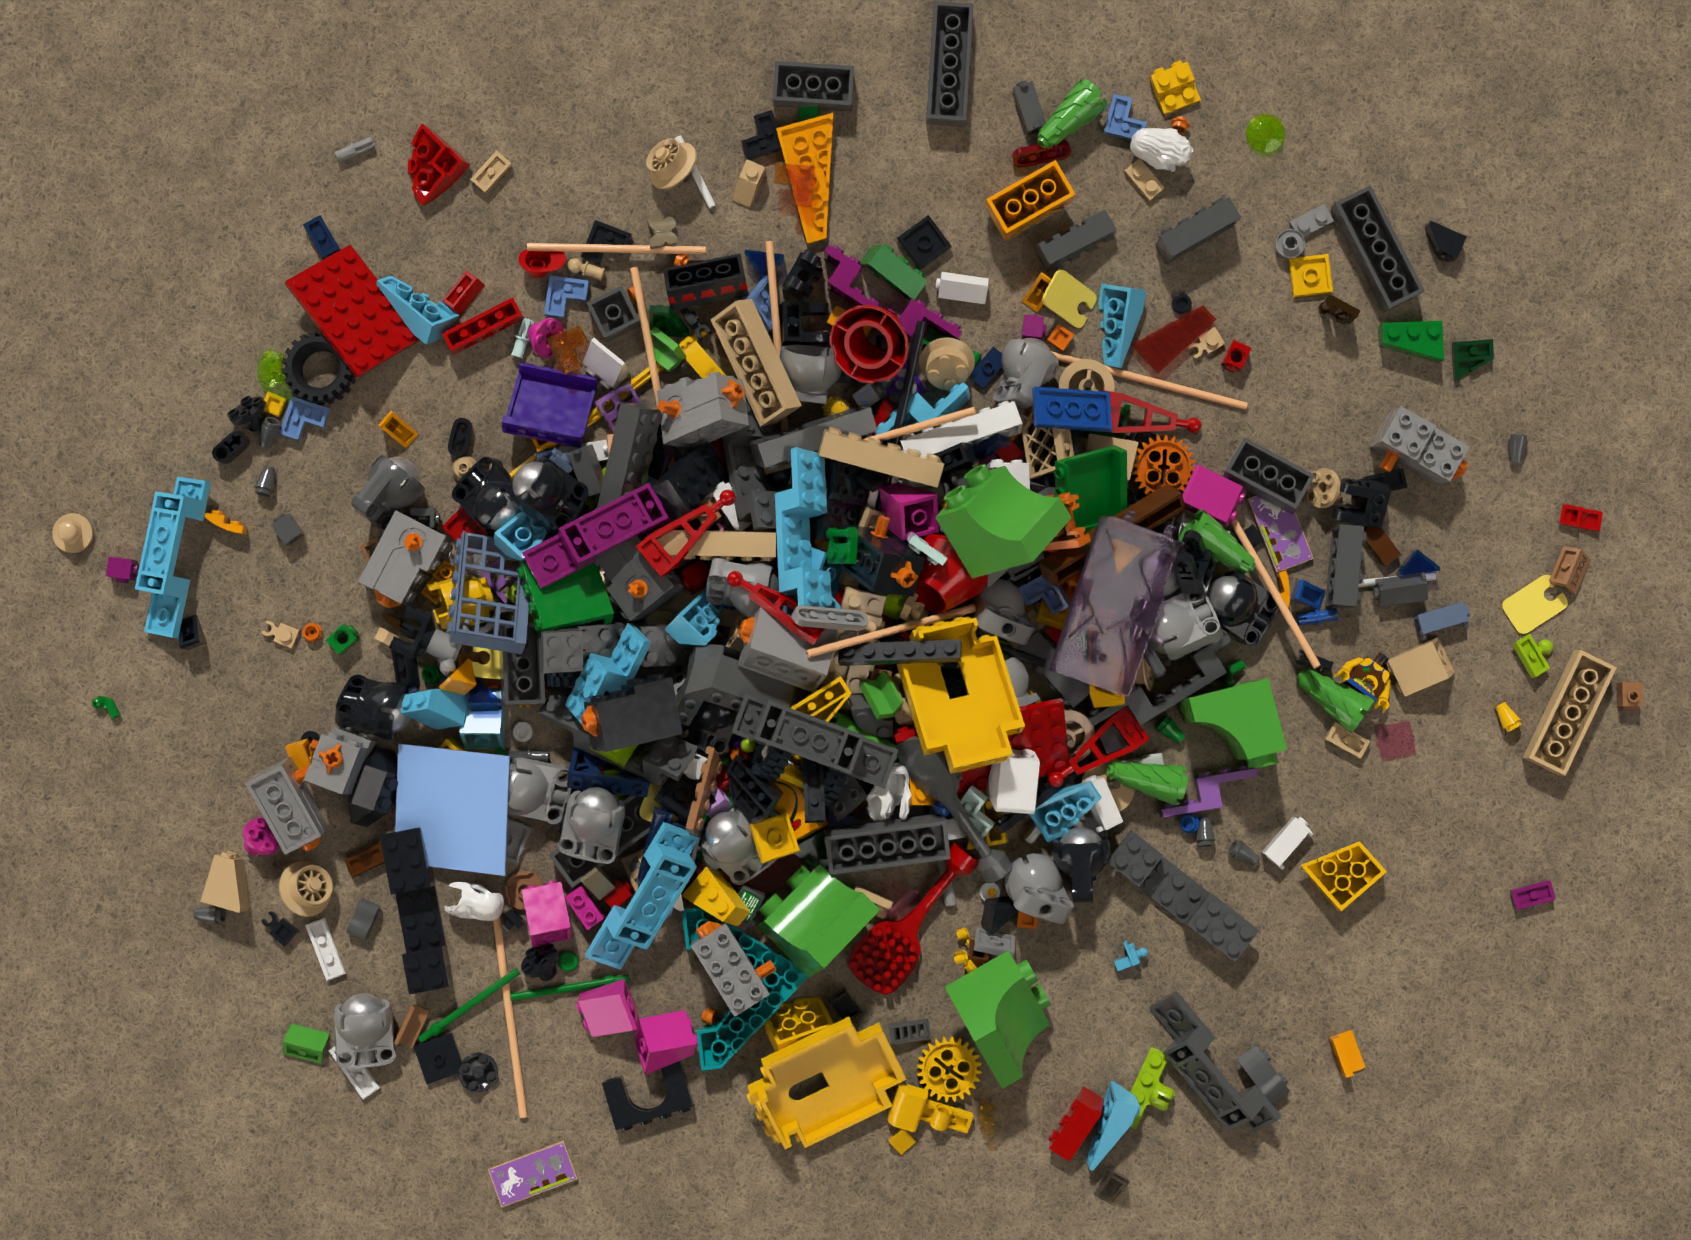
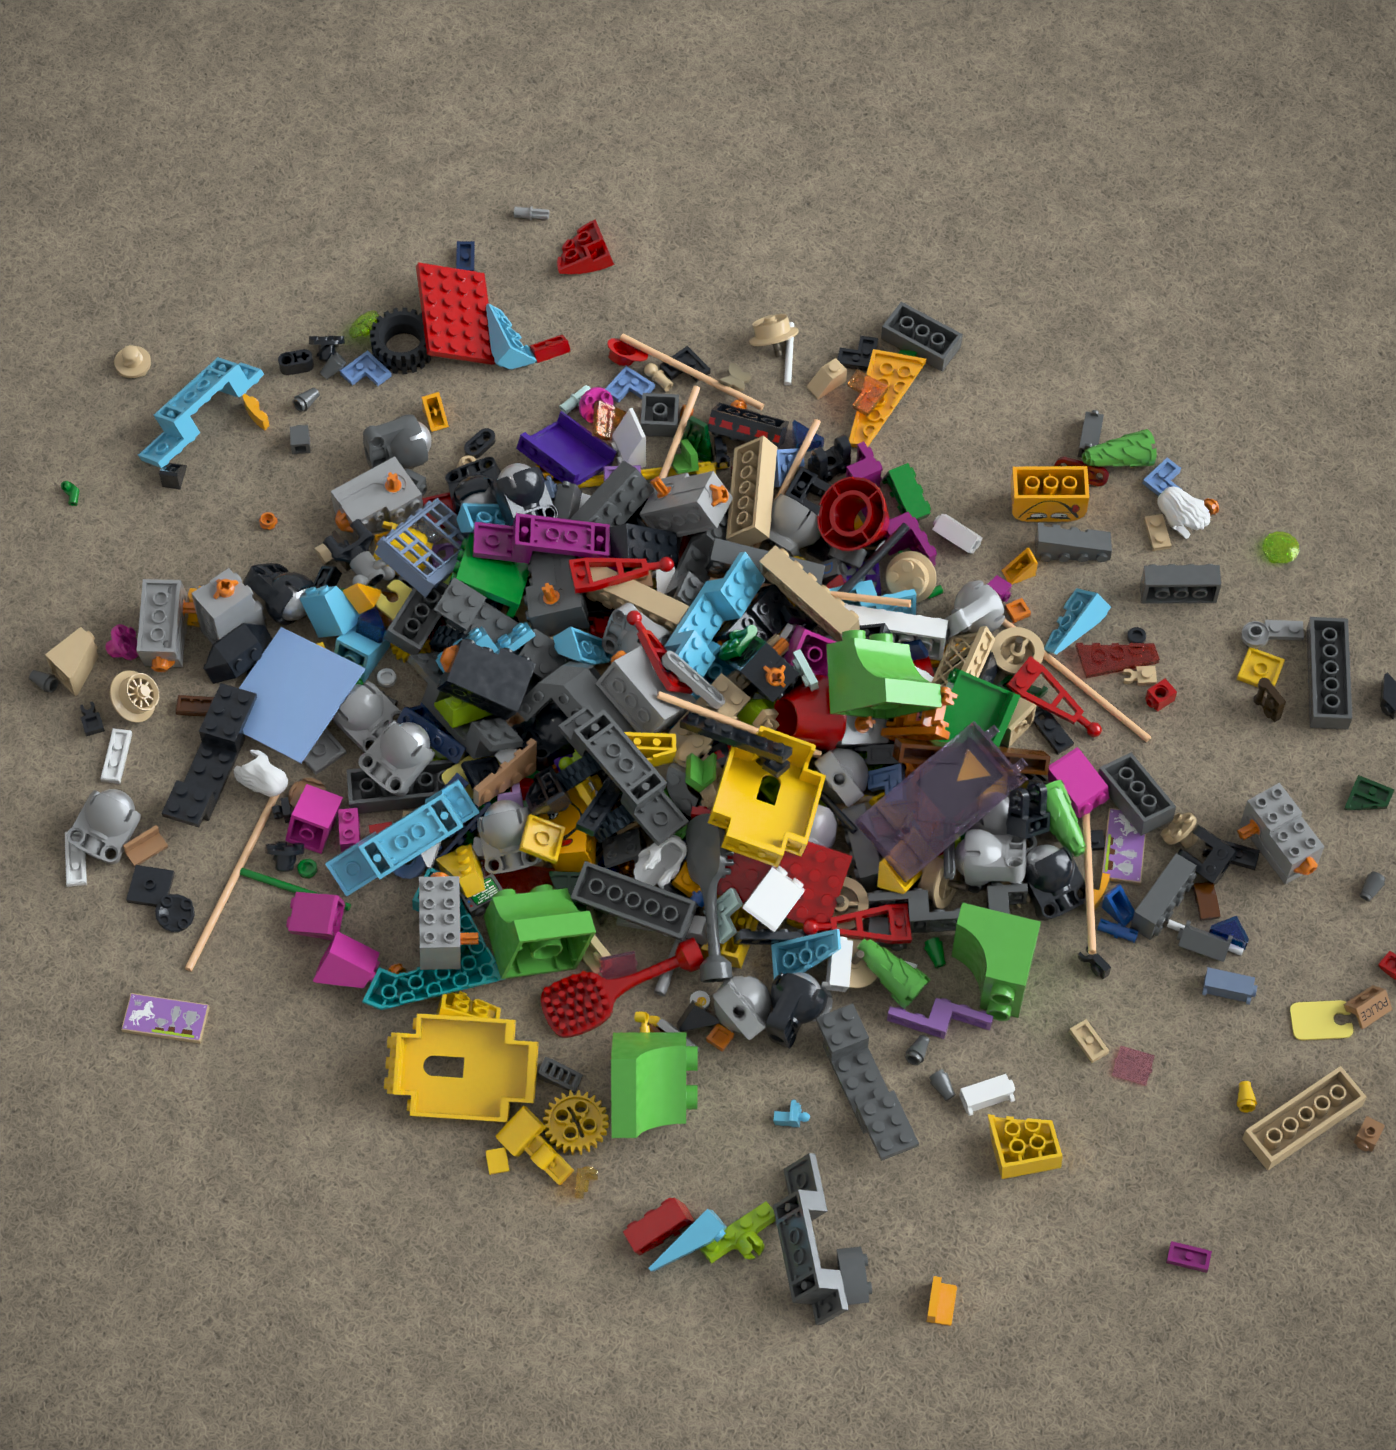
camera: 30 degrees right, 25 degrees down
(122, 569) = (151, 401): magenta brick -> none
(274, 404) = (349, 351): yellow tile -> none
(283, 635) = (244, 512): tan plate -> none
(305, 1043) = (49, 816): bright green panel -> none
(334, 639) = (287, 530): green brick -> none
(363, 919) = (162, 747): dark grey axle -> none
(438, 1027) = (165, 861): green bar -> none
(483, 326) = (550, 373): red brick -> none
(491, 172) = (627, 277): tan plate -> none
(598, 882) = (373, 809): dark tan slope -> none
(626, 1113) = (324, 1021): black arch -> none
(844, 1004) = (518, 1012): black slope -> none
(924, 242) = (945, 488): black plate -> none
(949, 63) = (1042, 373): dark grey brick -> none
(987, 368) = (940, 604): dark blue plate -> none
(1032, 834) = (764, 972): white tile -> none
(1065, 295) = (1039, 577): light yellow piece -> none
(1071, 409) = (993, 648): blue tile -> none
(1111, 1185) = (659, 1297): clear smoke slope -> none
(1144, 465) = (1033, 736): orange gear -> none
(1174, 87) = (1221, 478): yellow plate -> none
(1189, 823) = (908, 1035): blue plate -> none
(1337, 699) = (1098, 1001): bright green cone -> none
(1368, 678) = (1134, 997): torso -> none
(1418, 339) = (1324, 755): green wedge -> none
(1420, 667) = (1189, 1013): tan slope -> none
(1532, 654) = (1295, 1058): lime plate -> none

